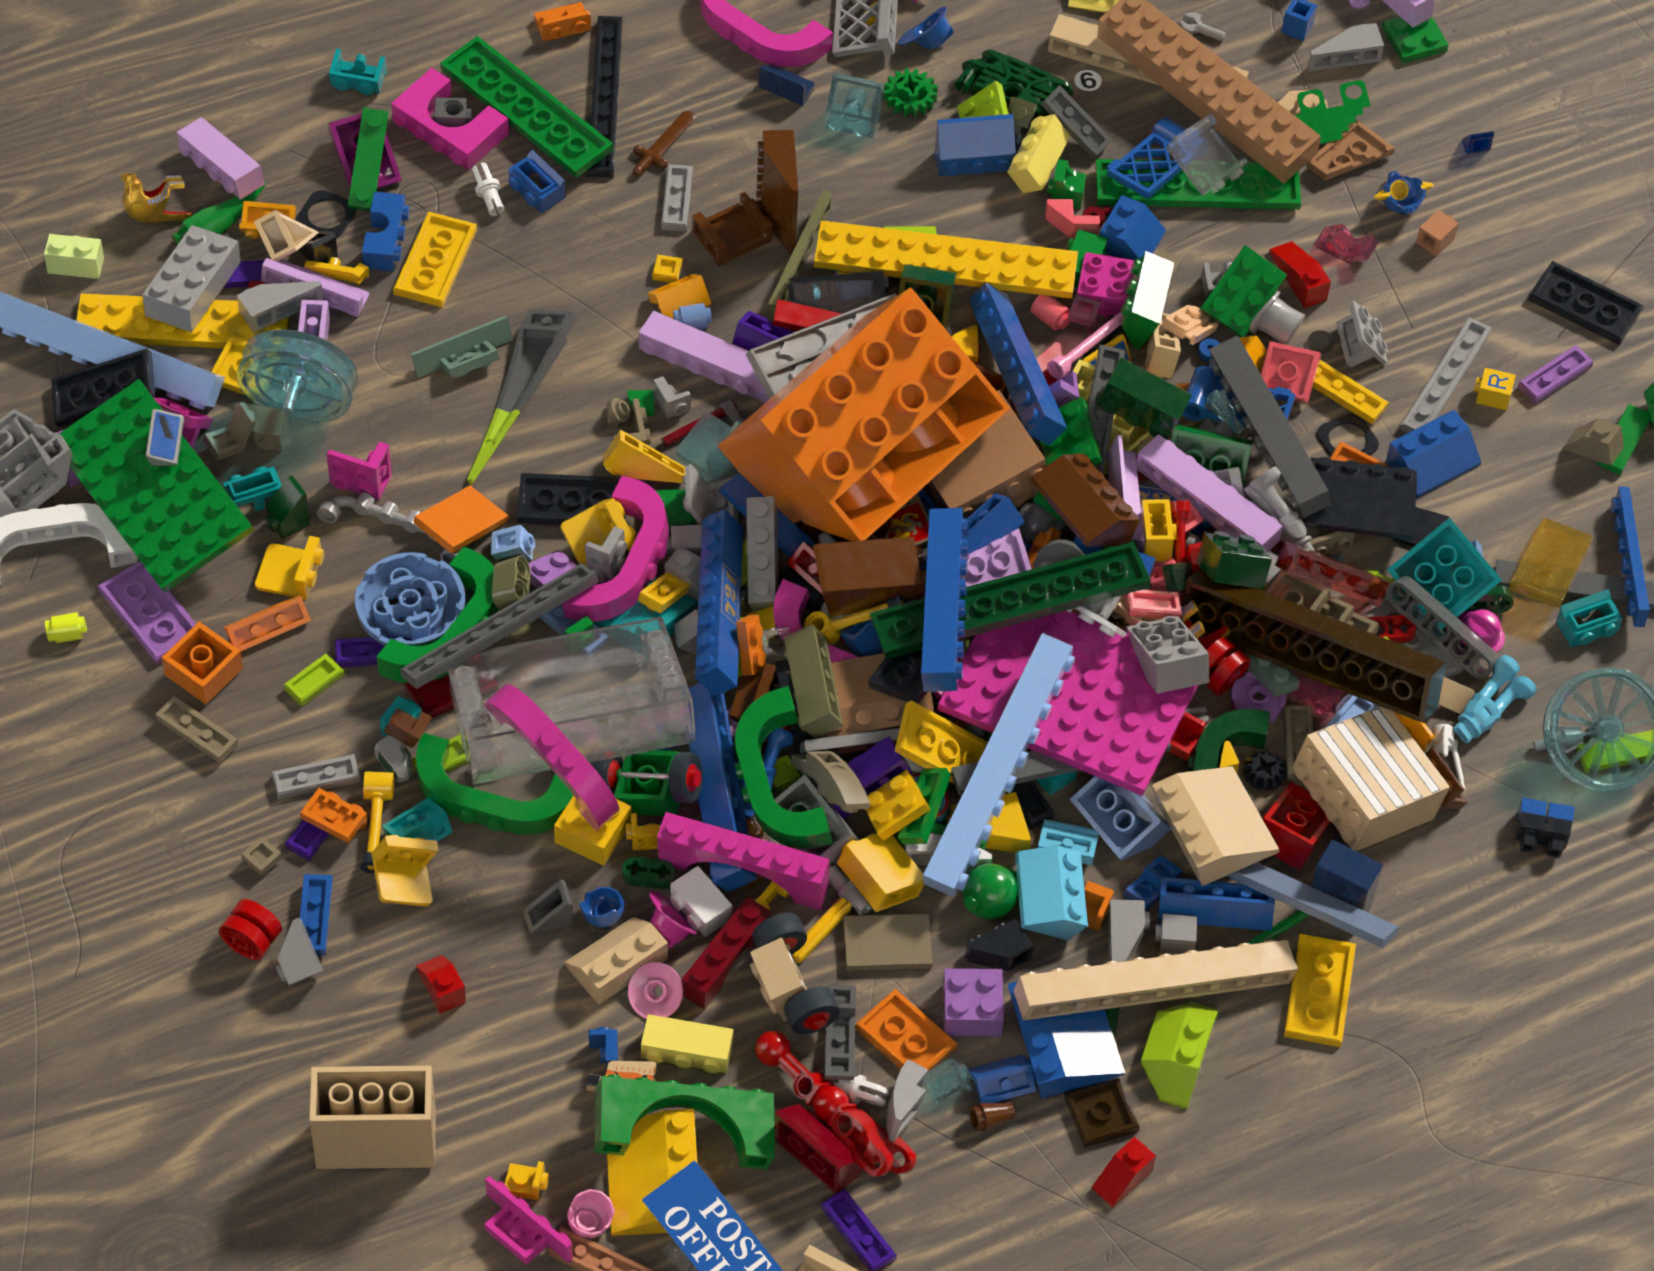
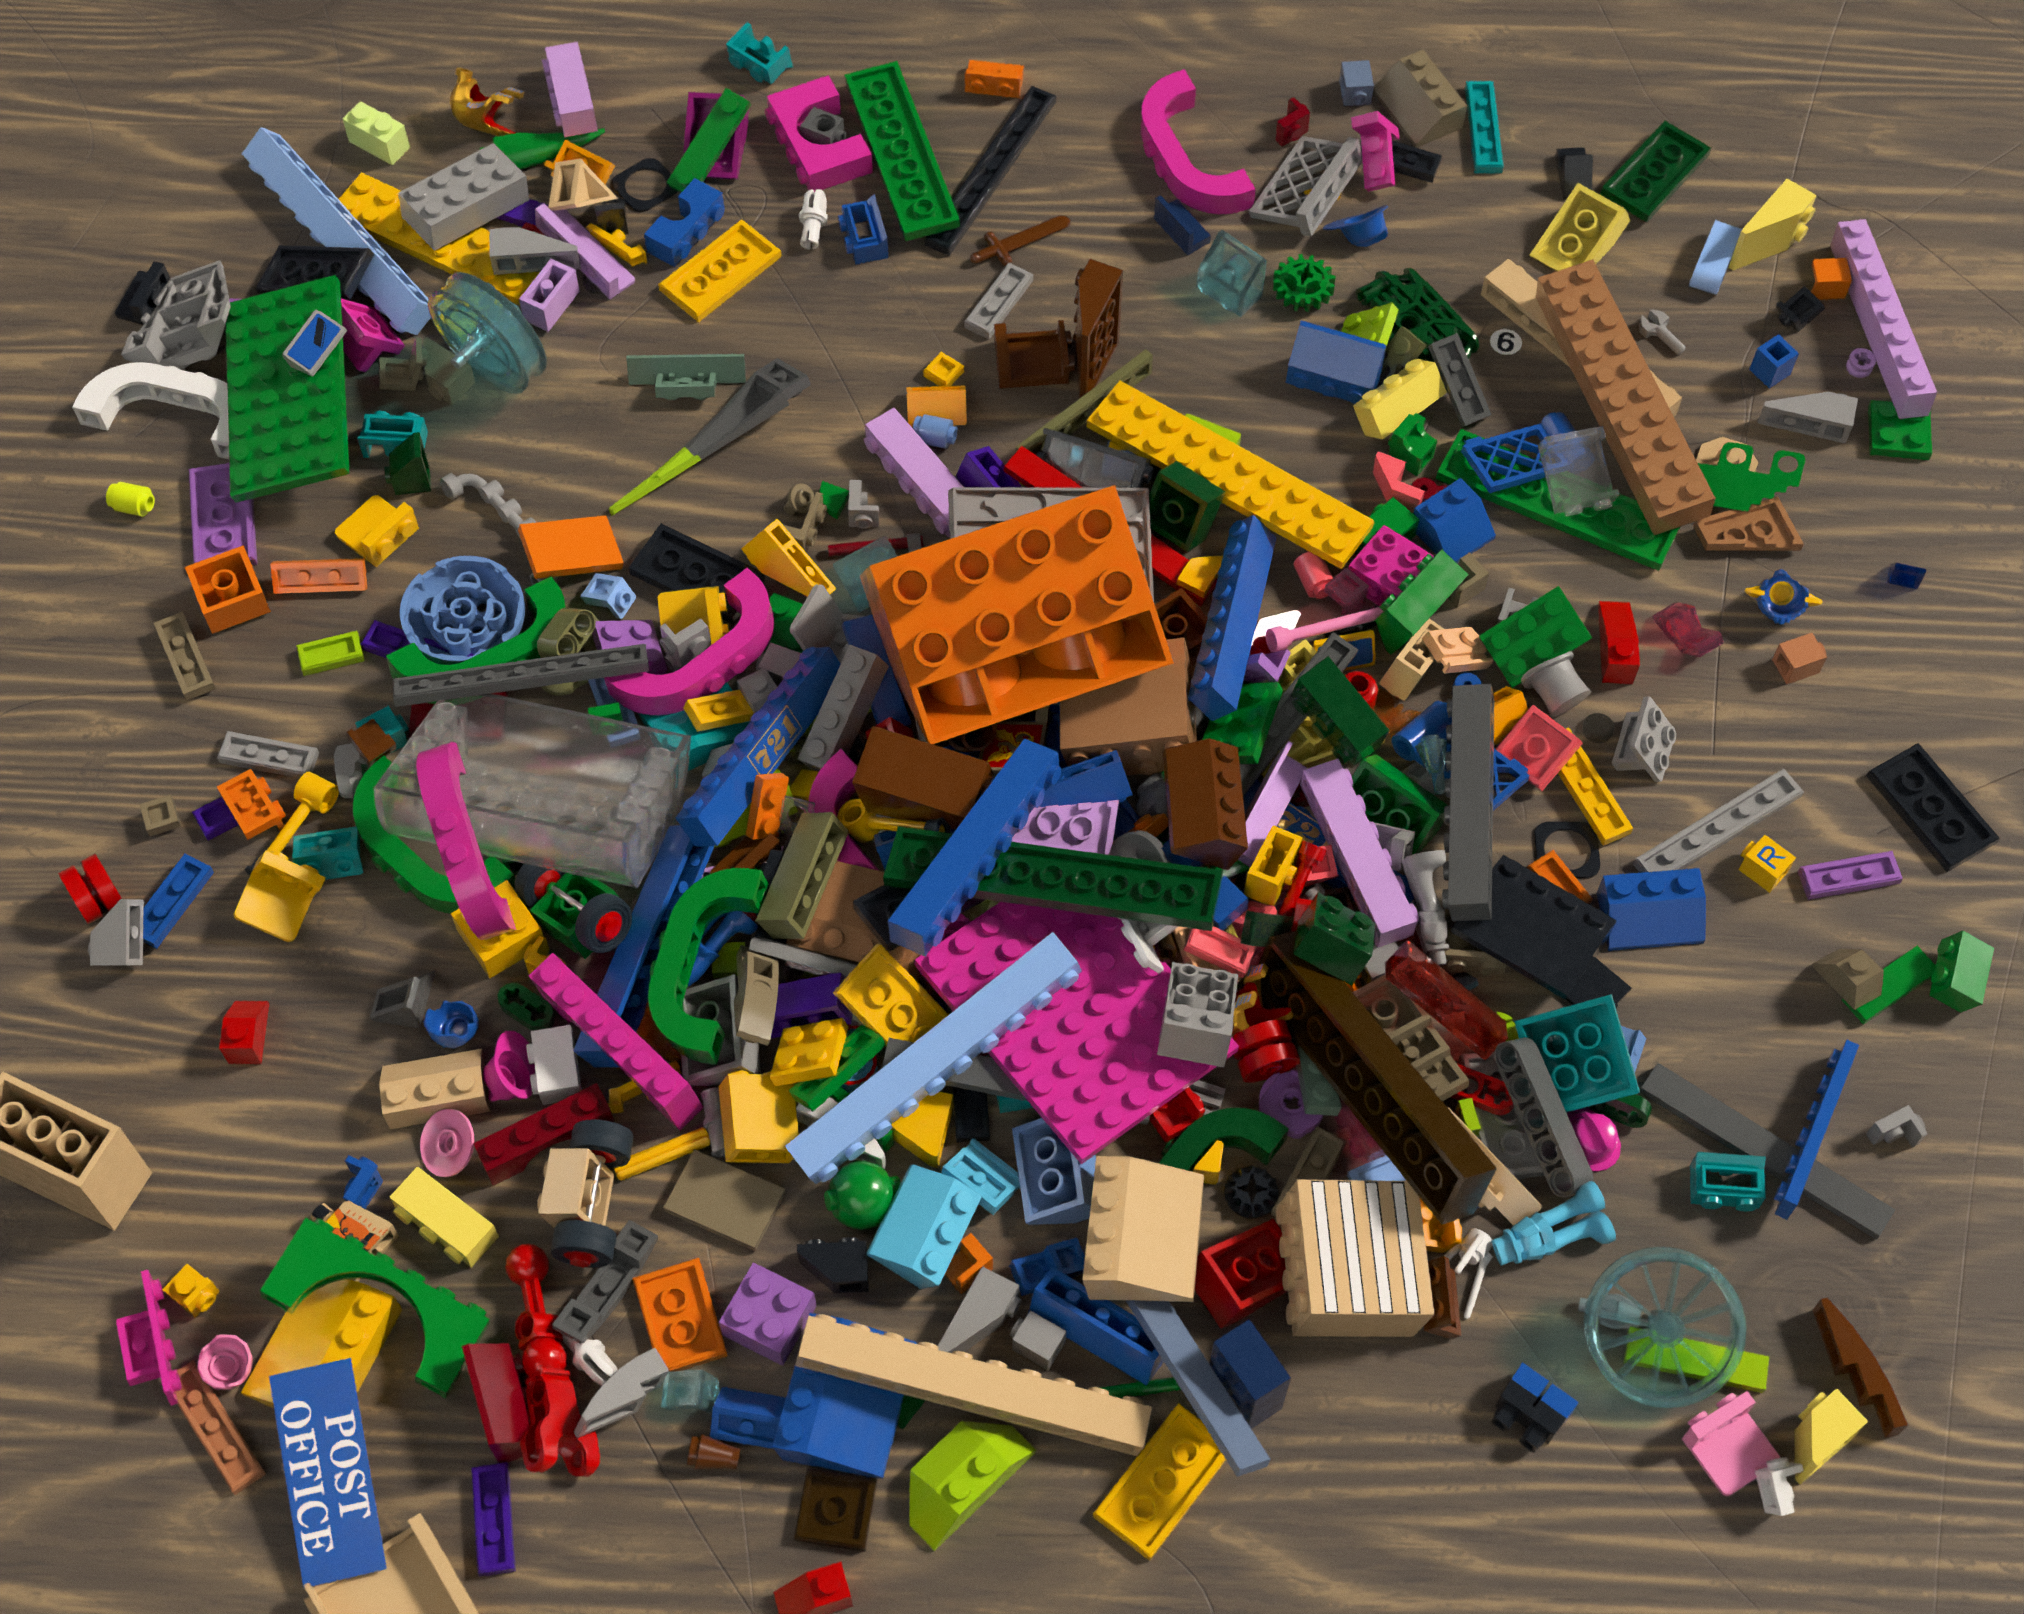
camera: 30 degrees right, 5 degrees up
(361, 475) = (512, 465): dark pink bracket -> none
(1551, 563) = (1718, 1095): clear yellow tile -> none

